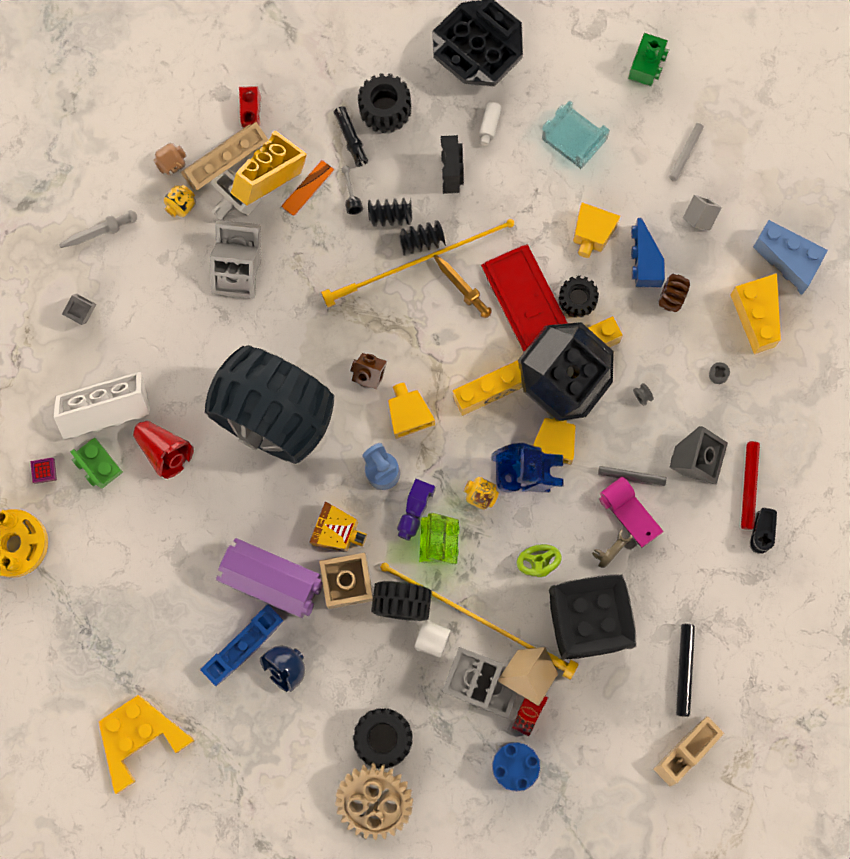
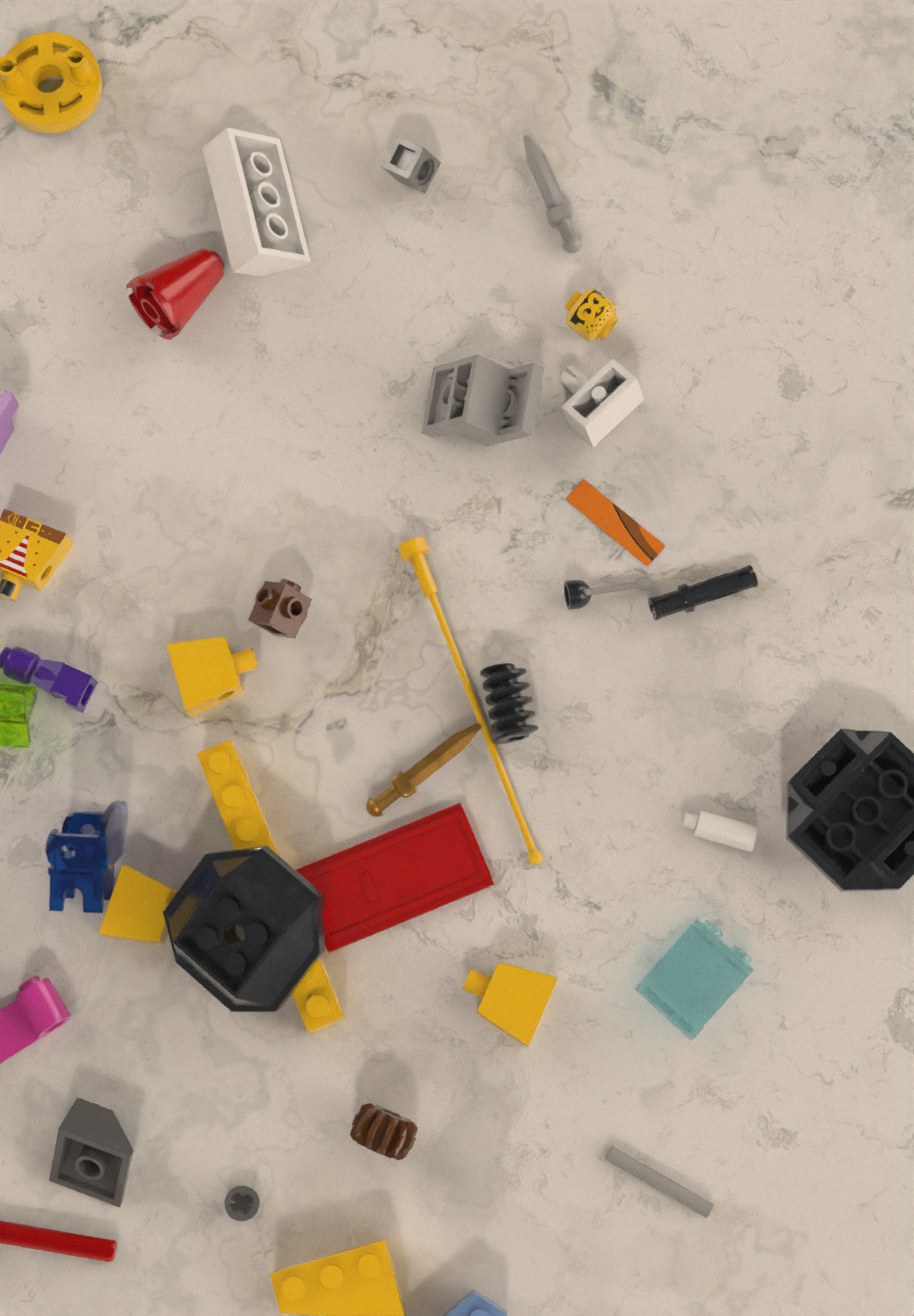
camera: 90 degrees right, 0 degrees up
(43, 470) = (161, 124): tile -> none
(97, 463) = (164, 197): bright green bracket -> none
(170, 159) = (668, 300): medium nougat head -> none
(224, 156) = (657, 379): tan fence -> none
(249, 105) = (759, 426): red leg -> none
(268, 169) = (632, 450): yellow wedge -> none
(269, 404) = (206, 439): black wheel -> none
(380, 88) = (771, 622): black tyre -> none
(381, 467) = (112, 624): medium blue piece -> none
(390, 212) = (556, 653): black piece -> none
(453, 164) = (623, 757): black brick -> none
(481, 493) = (63, 782): yellow head -> none
(582, 284) = (382, 945): black tyre -> none
(630, 475) = (75, 1036): dark grey bar -> none
(643, 394) = (210, 1065): dark grey bush -> none
(648, 59) = (838, 1123): green brick -> none
(649, 262) = (445, 1093): blue slope -> none
(702, 212) = (537, 1198): light grey panel -> none

